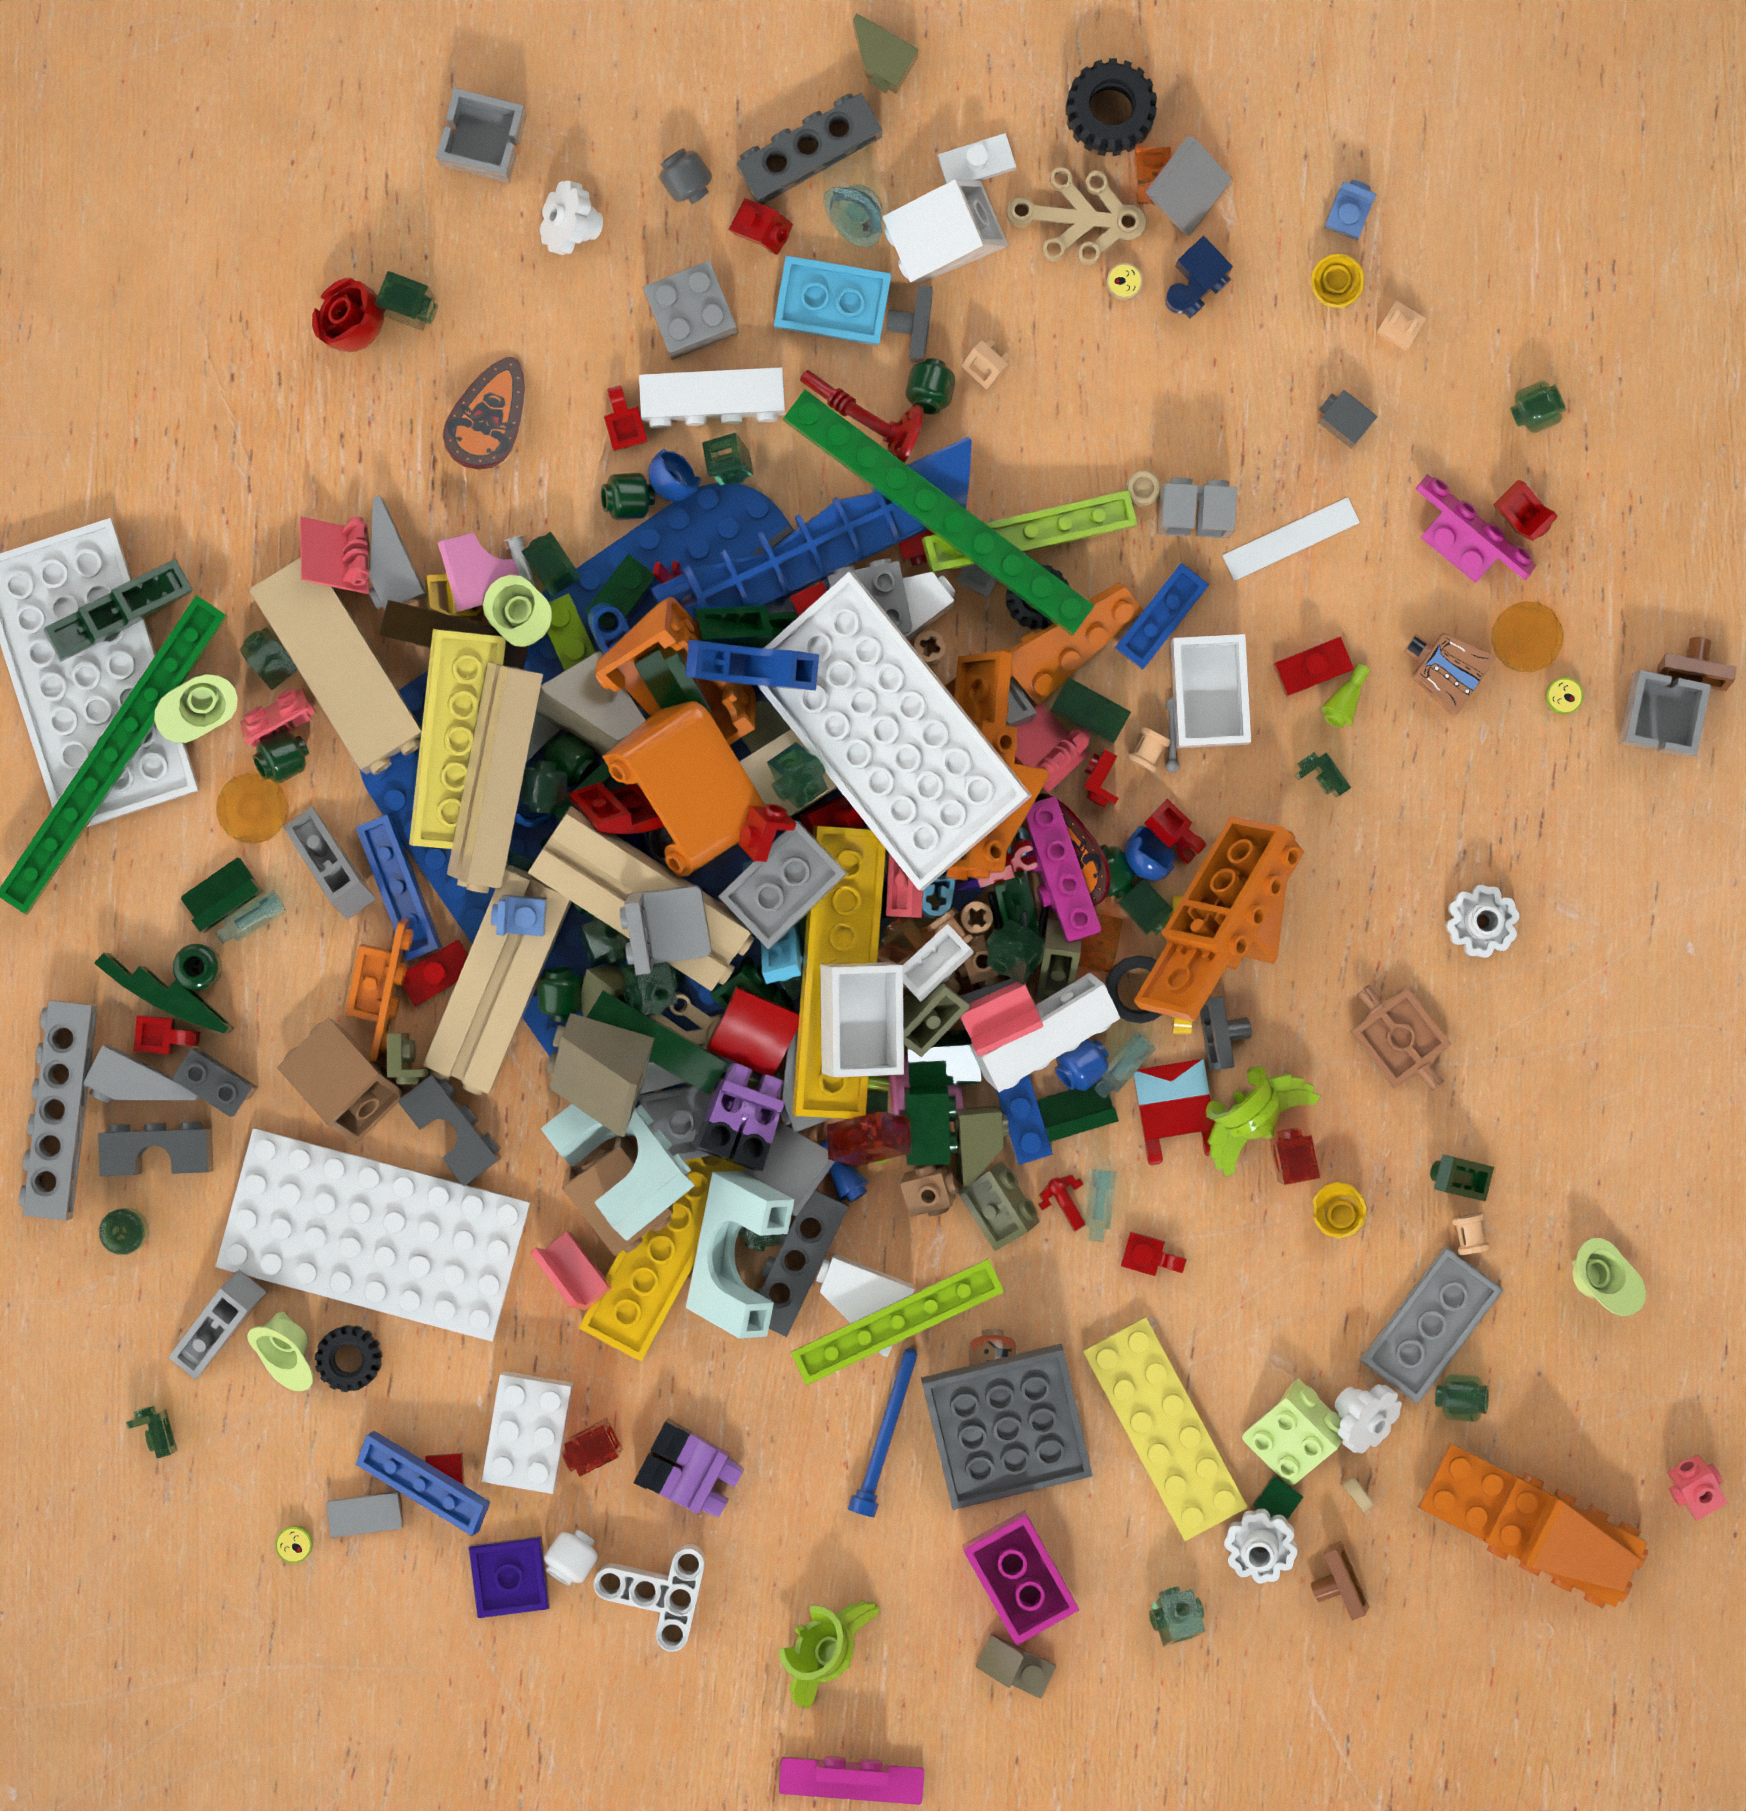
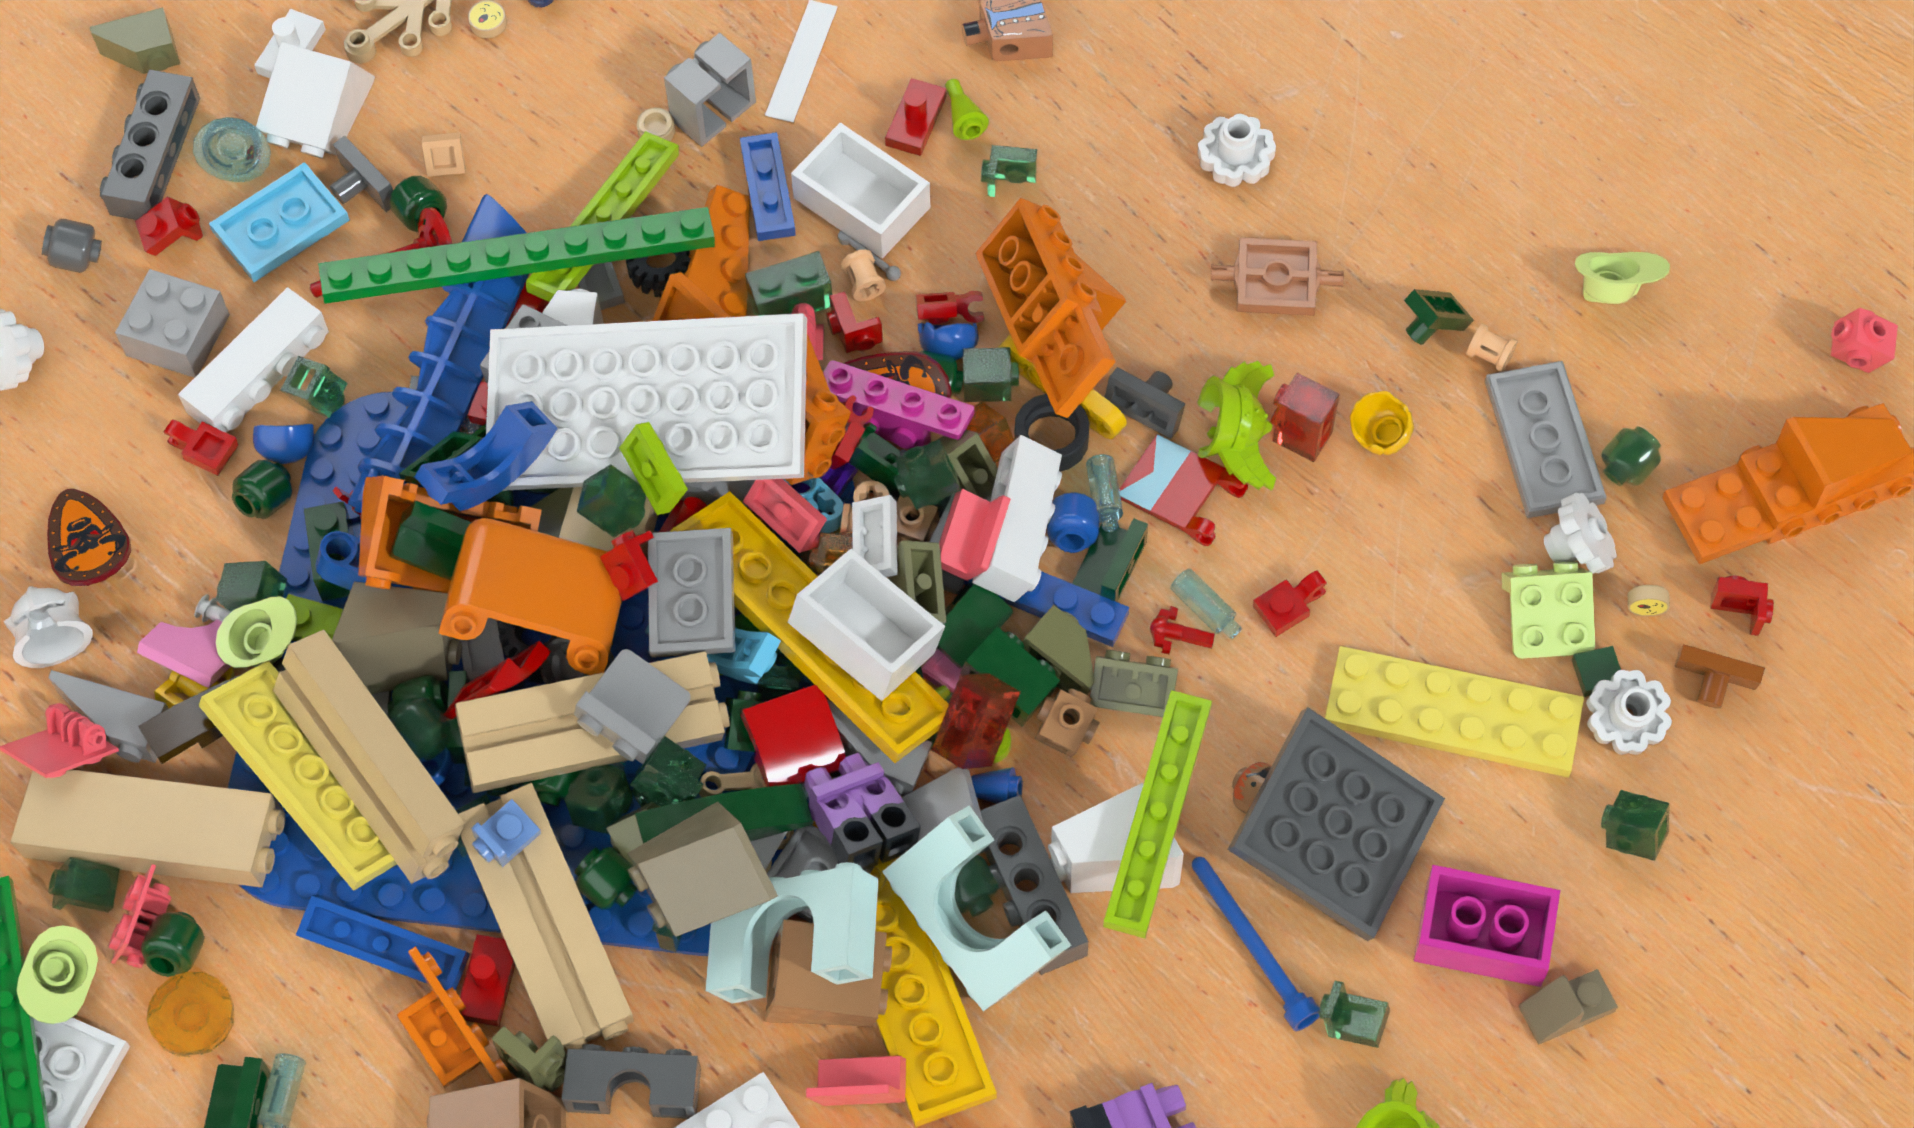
camera: 45 degrees left, 25 degrees down
(329, 863) = (305, 984): light grey slope -> none
(407, 454) = (47, 628): none -> white helmet
(839, 786) = (653, 468): none -> lime plate
(887, 1541) = (1353, 1016): none -> clear green bracket
(1415, 1549) = (1746, 597): none -> red bracket

